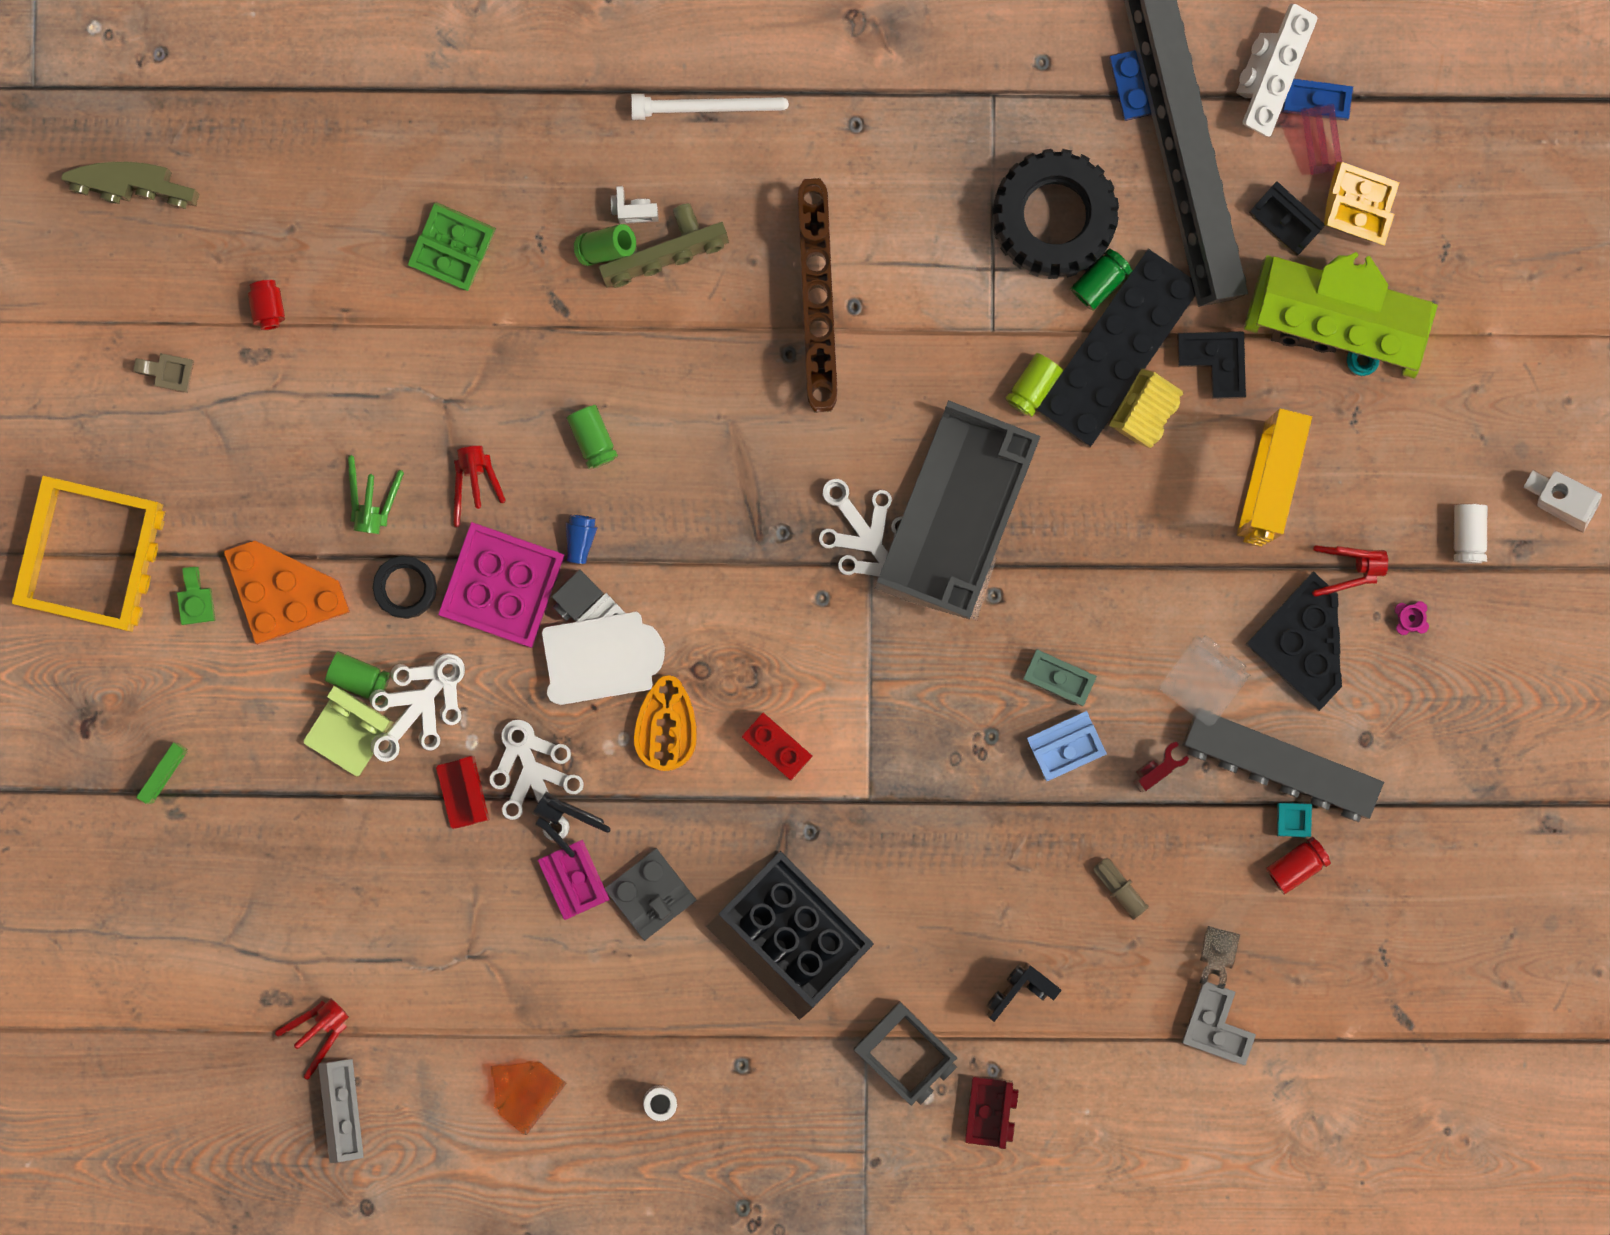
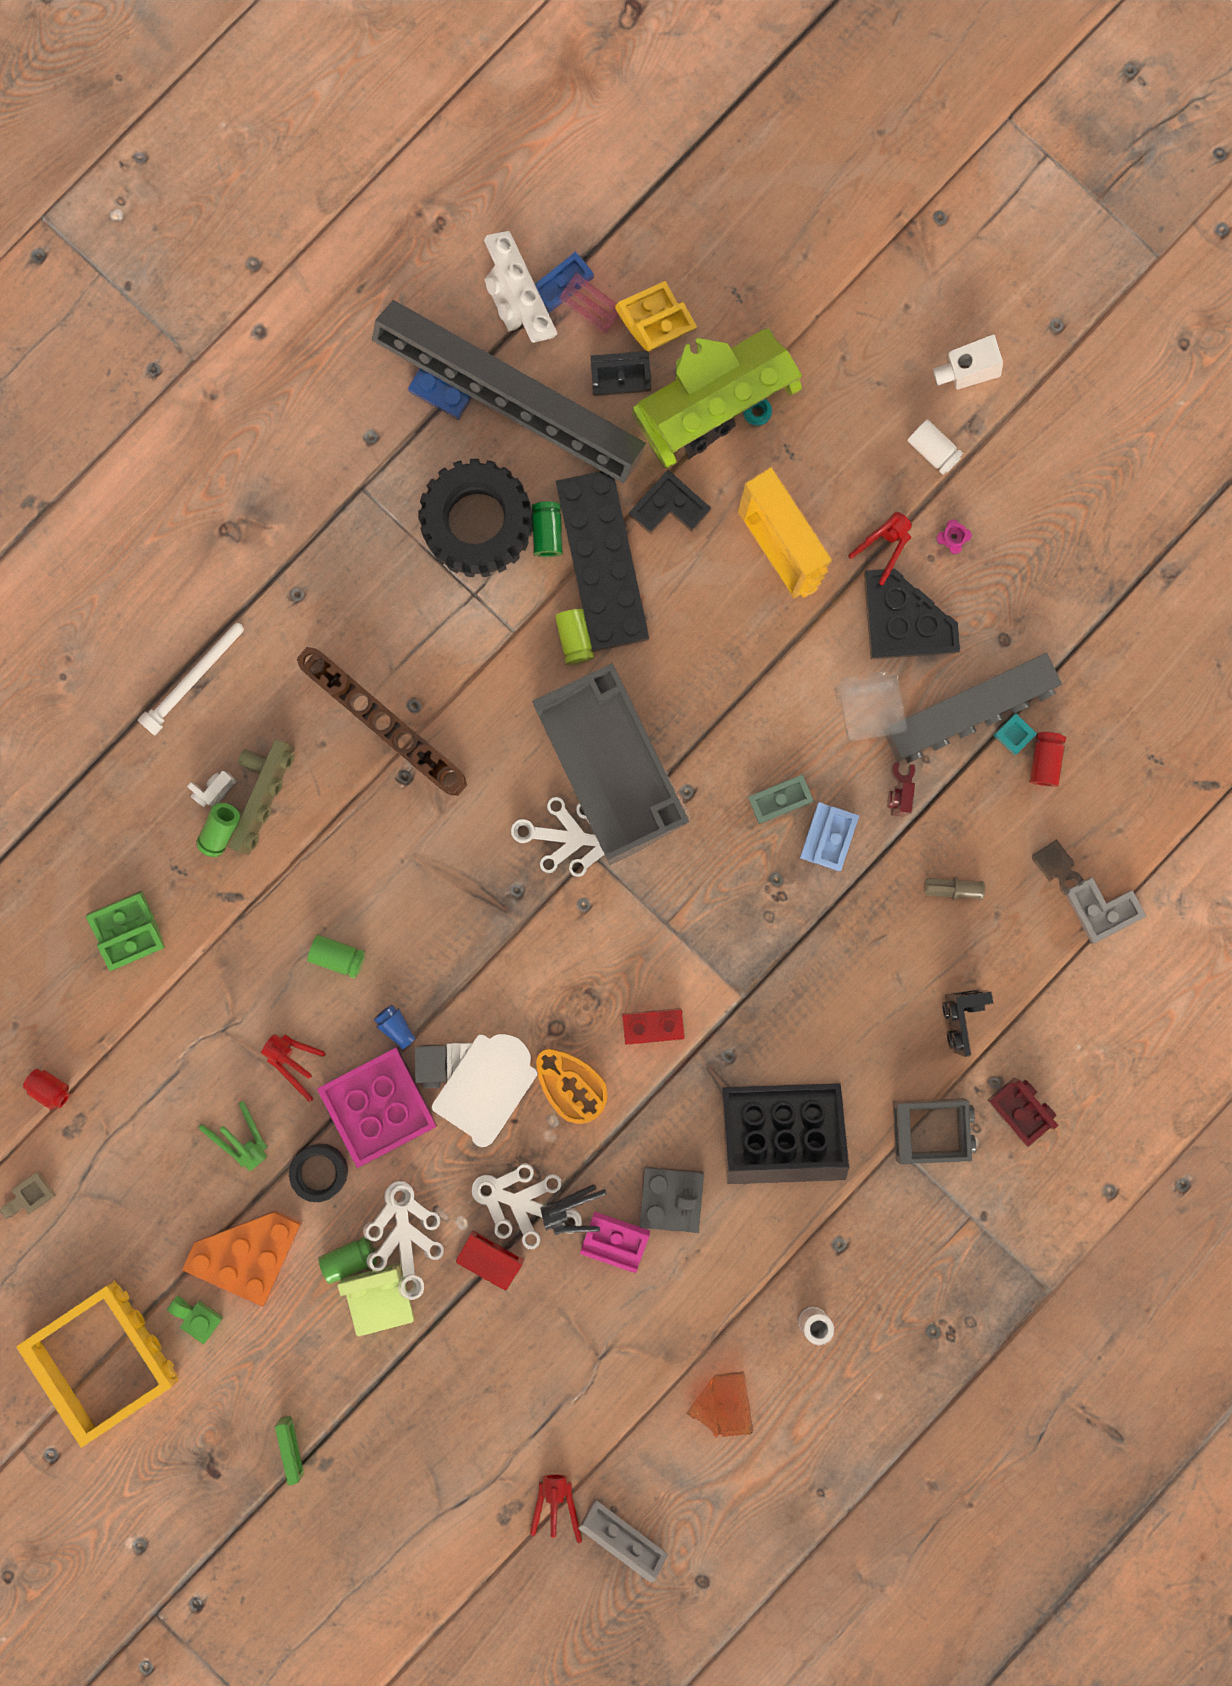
camera: 45 degrees left, 0 degrees up
(1147, 408) = (658, 578): light yellow brick -> none

